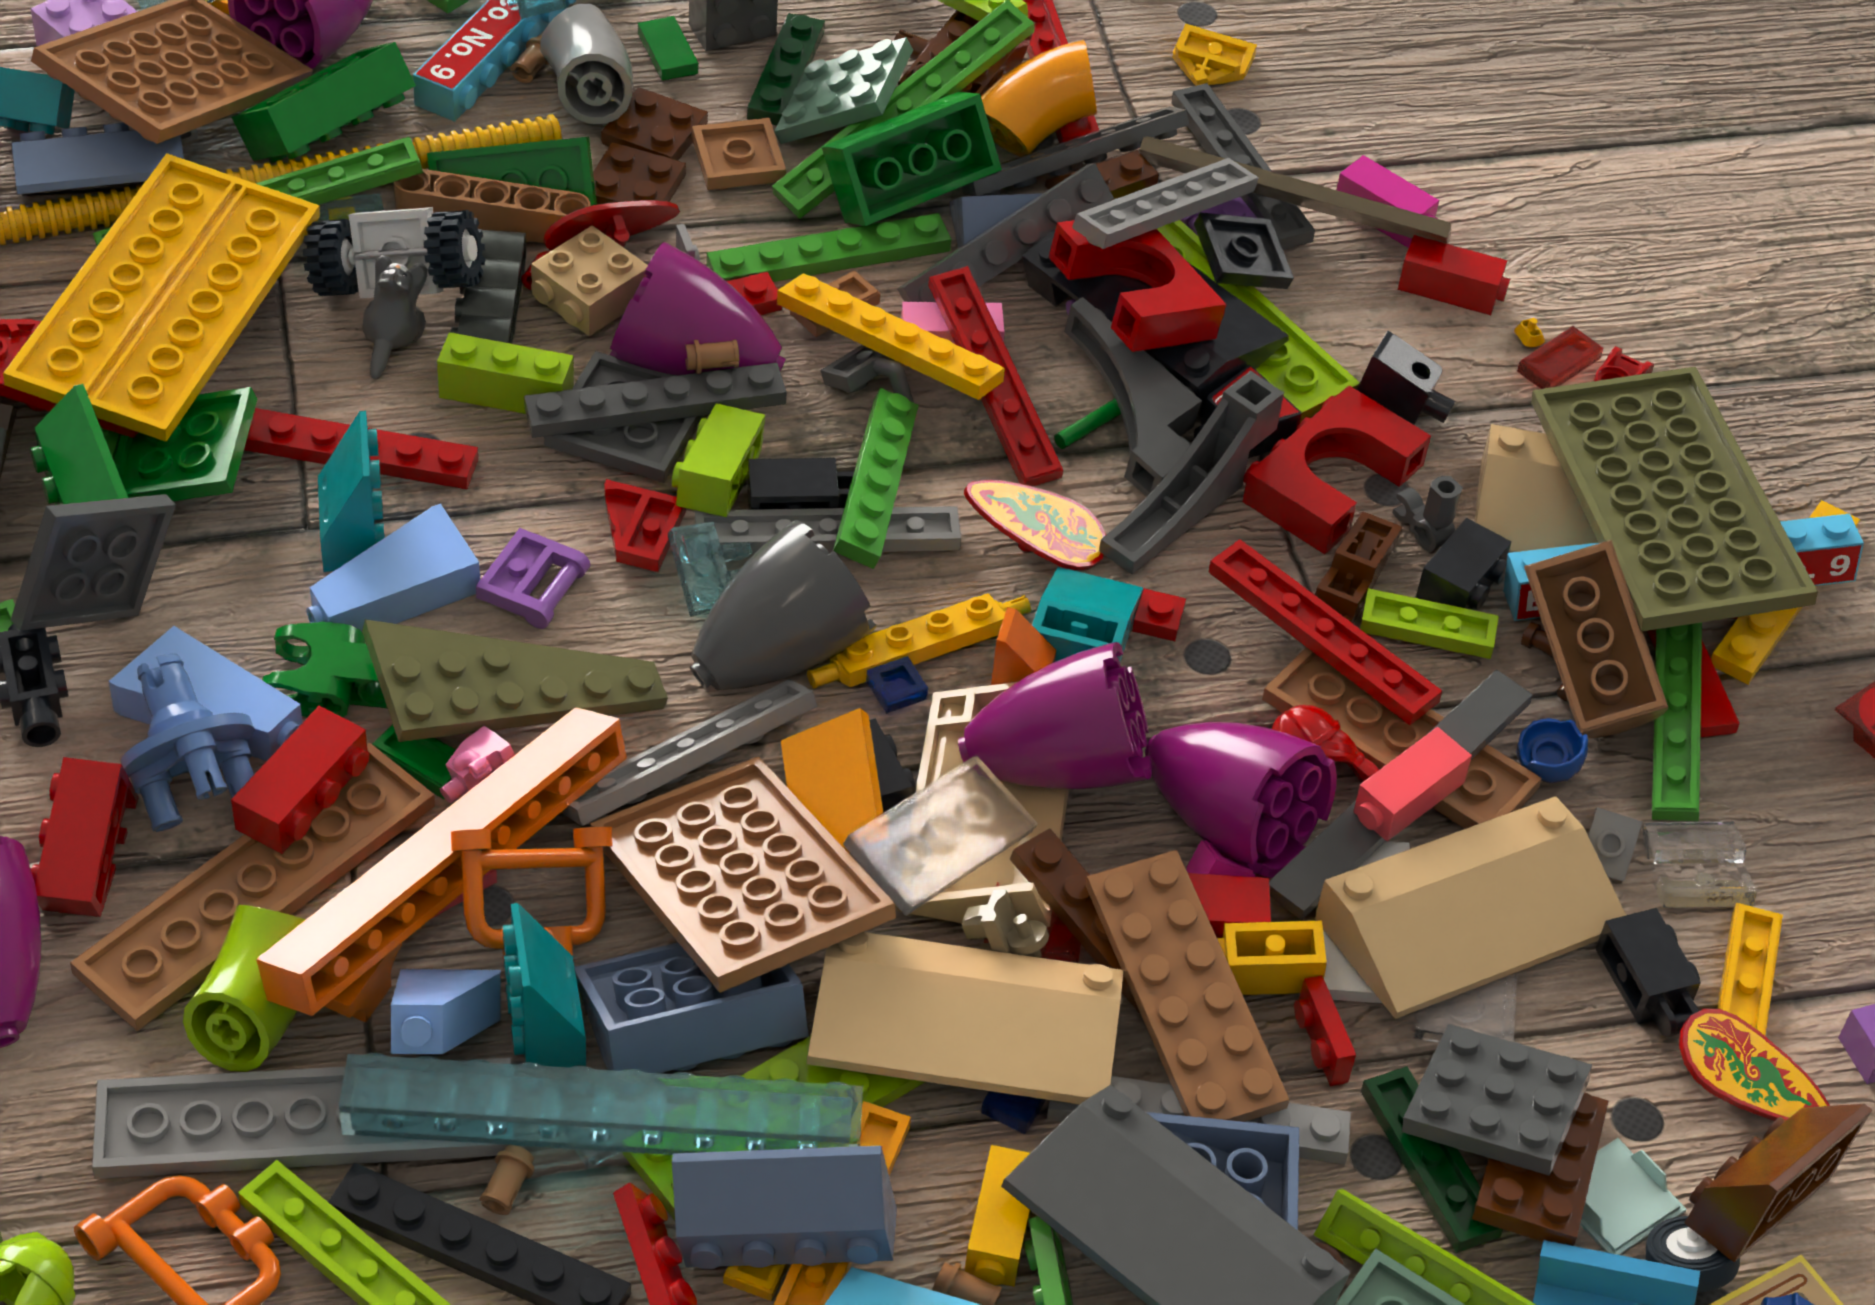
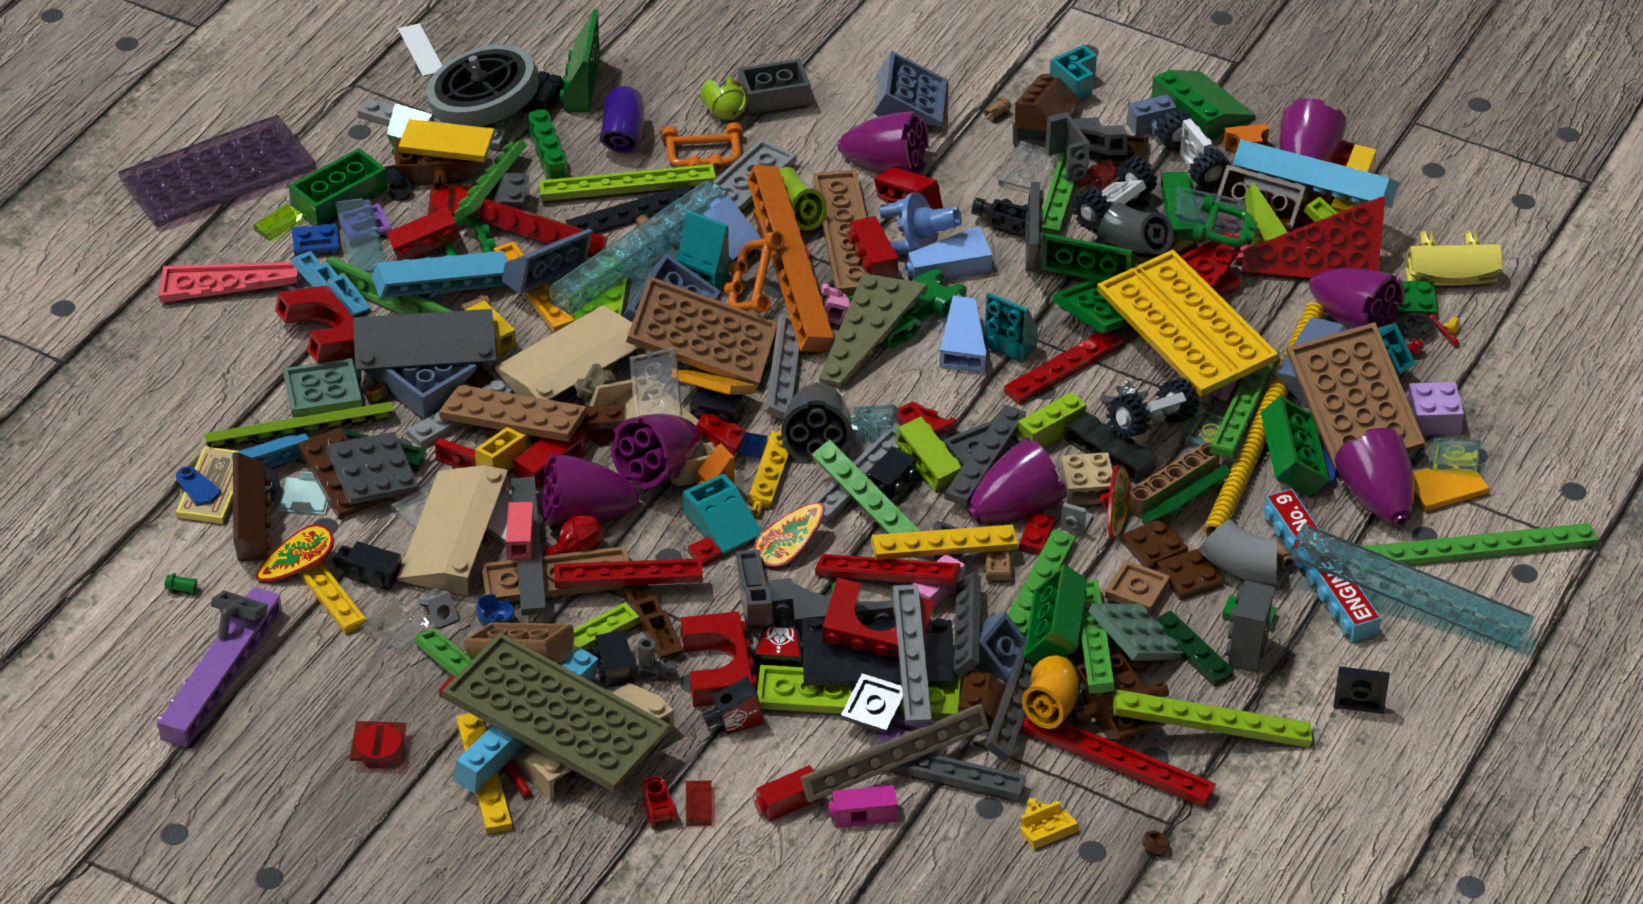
camera: 135 degrees right, 5 degrees down
(520, 570) = (931, 371): medium lavender plate -> none
(712, 355) = (986, 464): medium nougat pin -> none
(923, 724) = (721, 432): none -> red wing
(1529, 333) = (726, 804): yellow rock -> none

